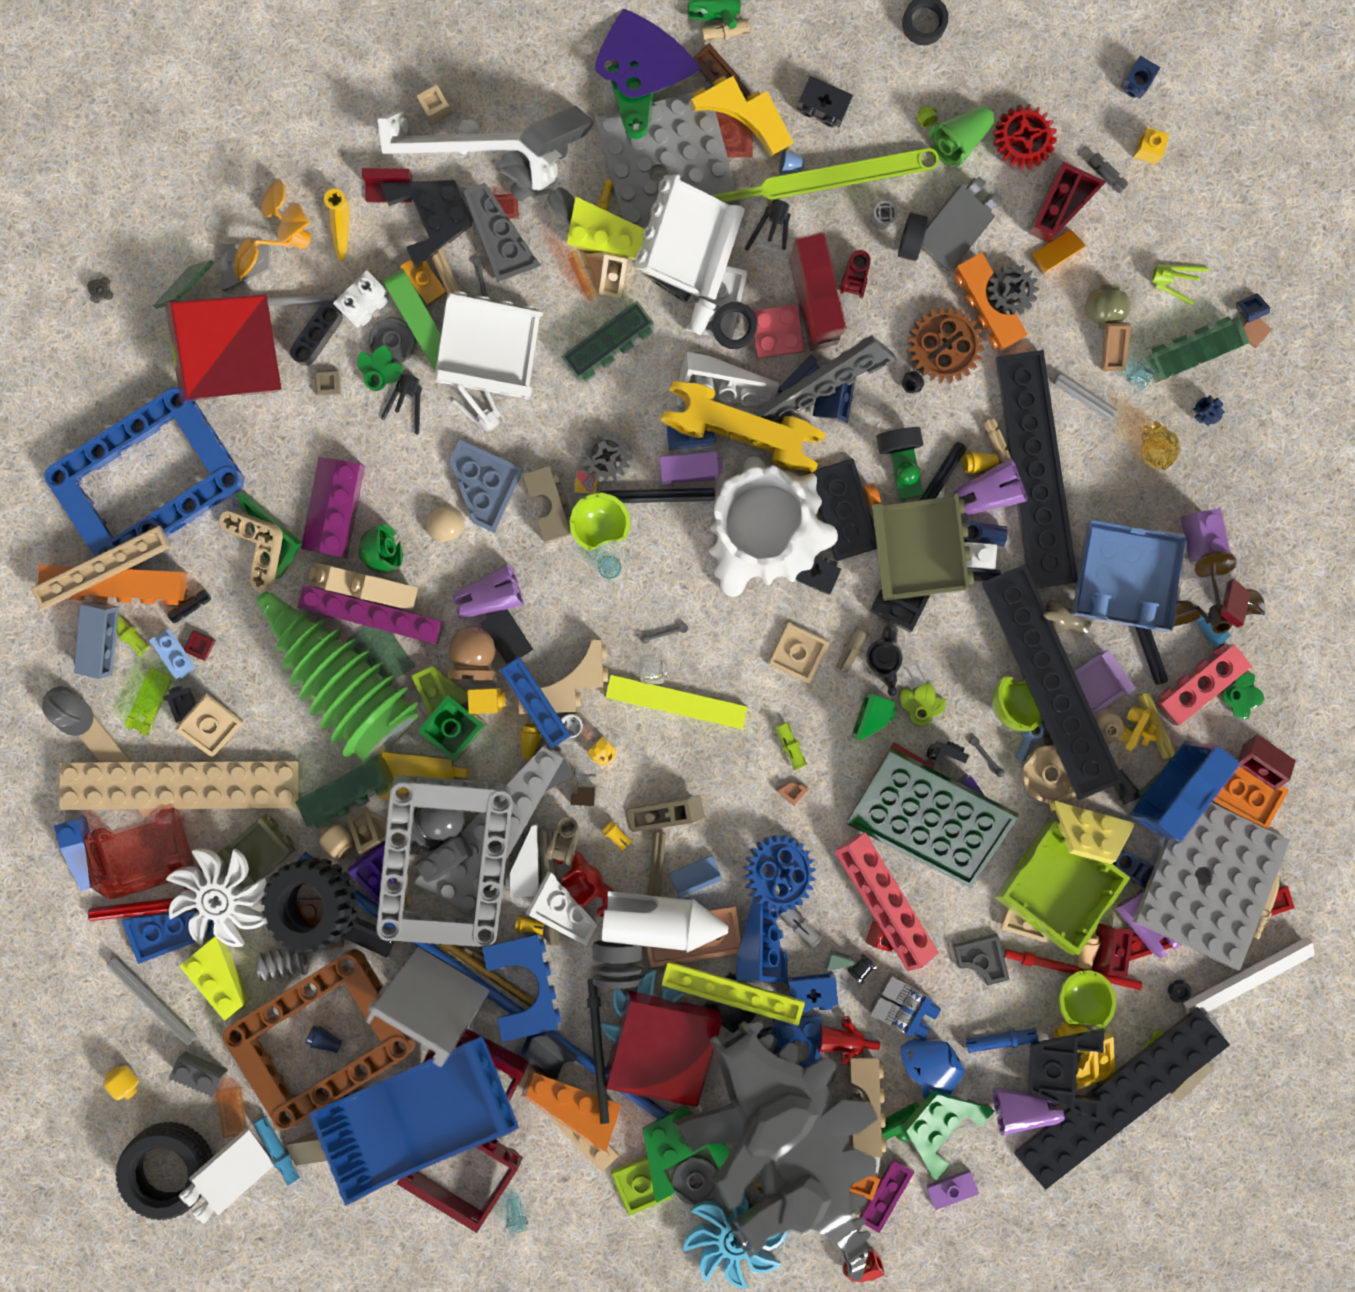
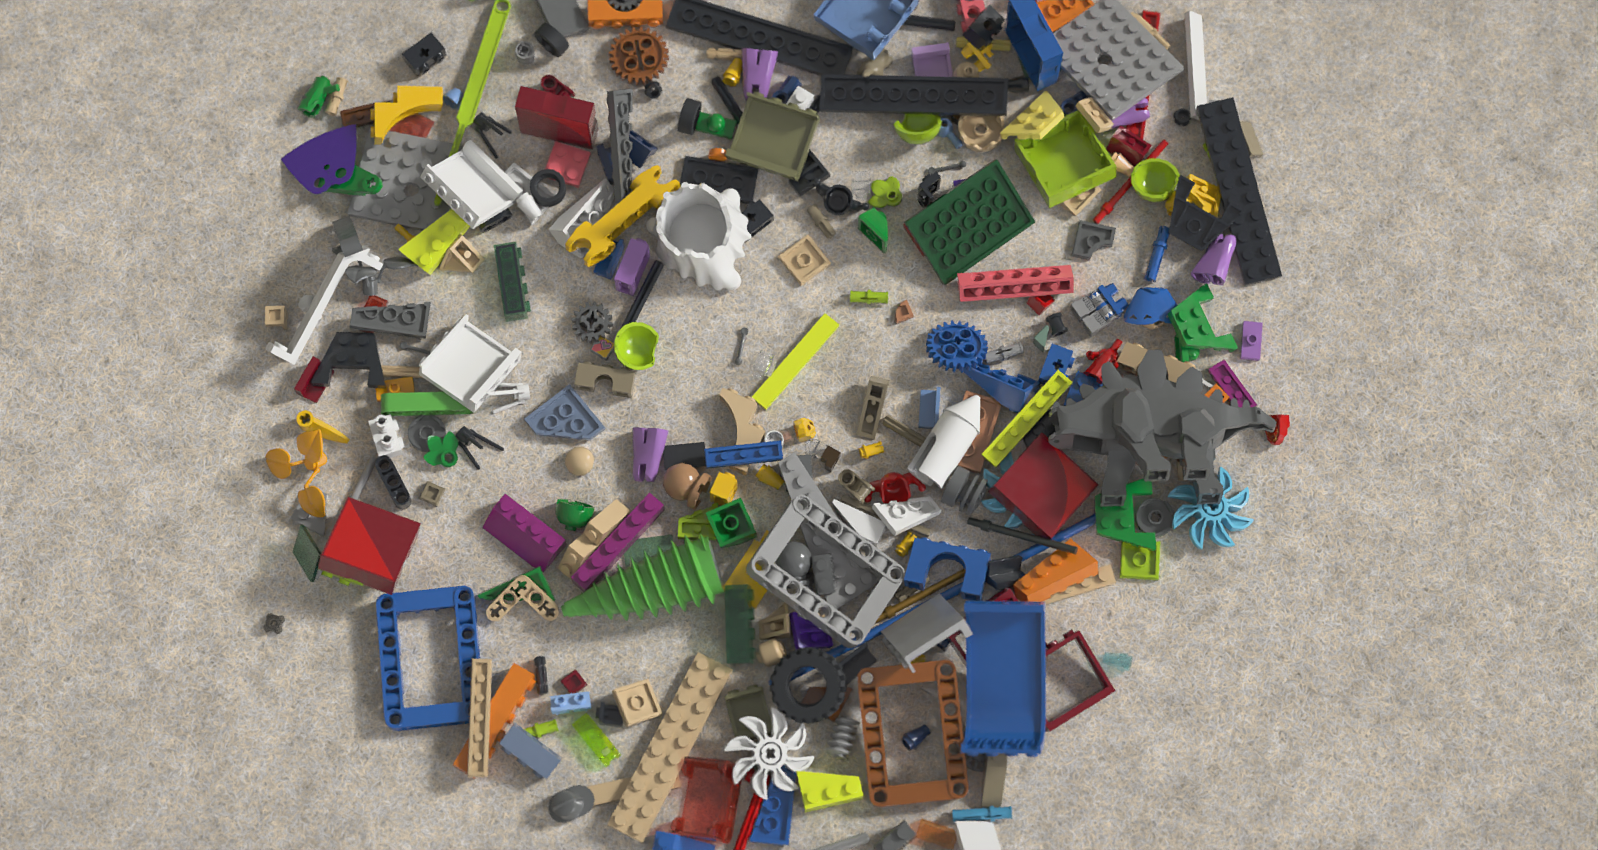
camera: 60 degrees left, 15 degrees down
(582, 275) = (454, 276): clear orange tile -> none
(609, 567) = (674, 355): clear light blue wheel -> none
(1129, 899) = (1094, 115): none -> tan plate
(1172, 723) = (983, 27): none -> black brick

